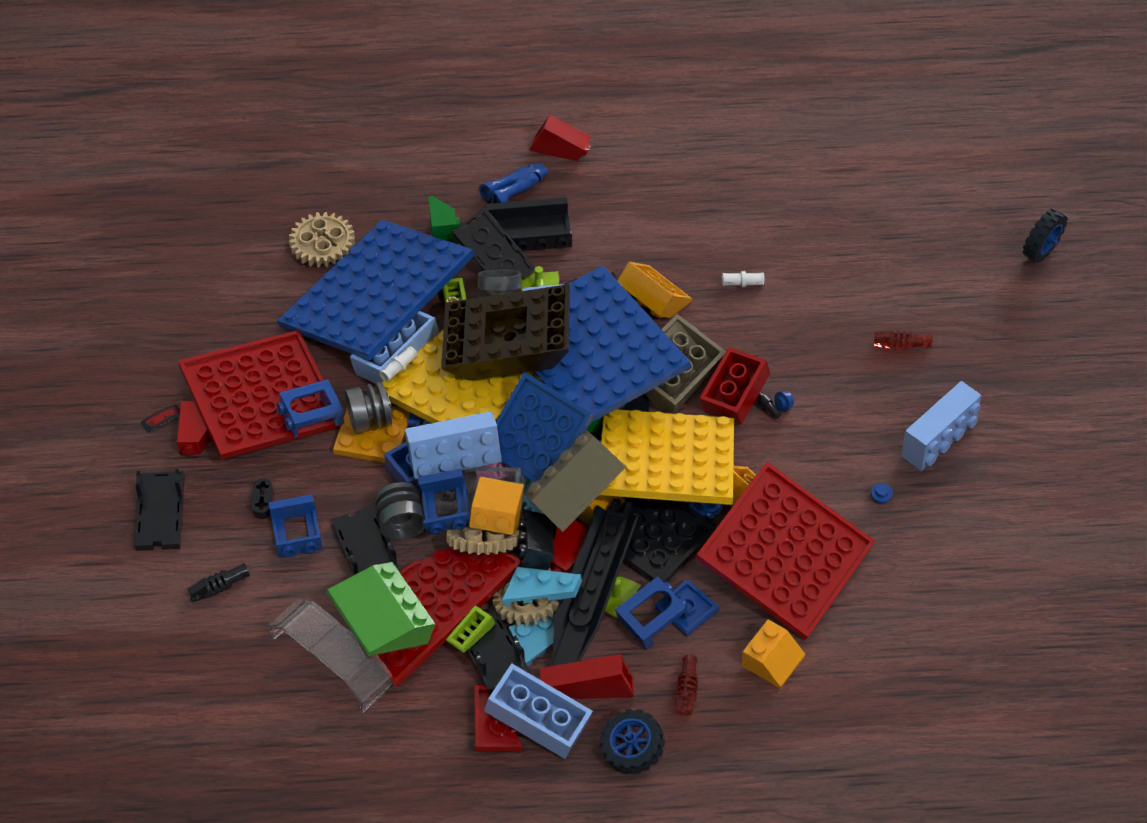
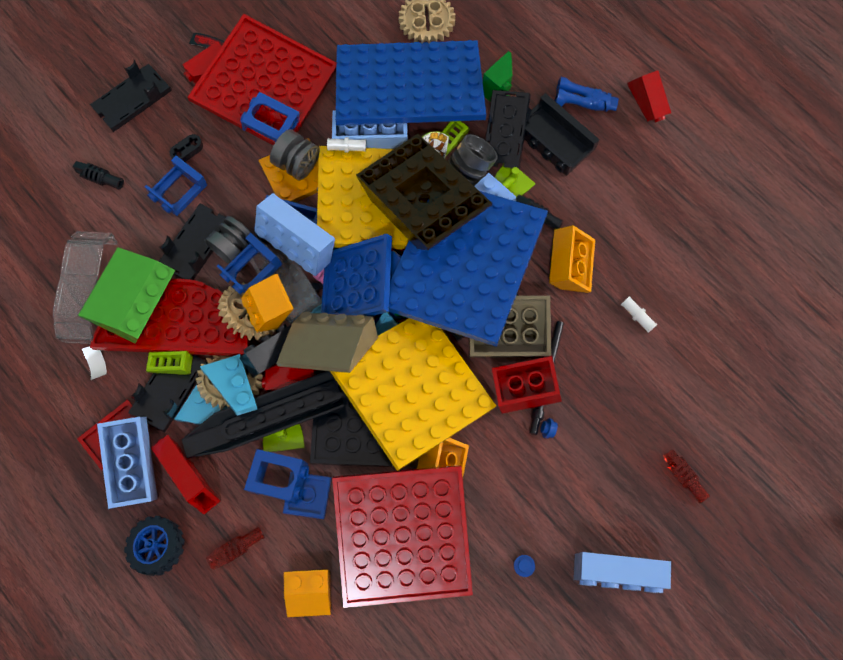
camera: 50 degrees right, 20 degrees up
(409, 697) = (95, 361): none -> white sticker

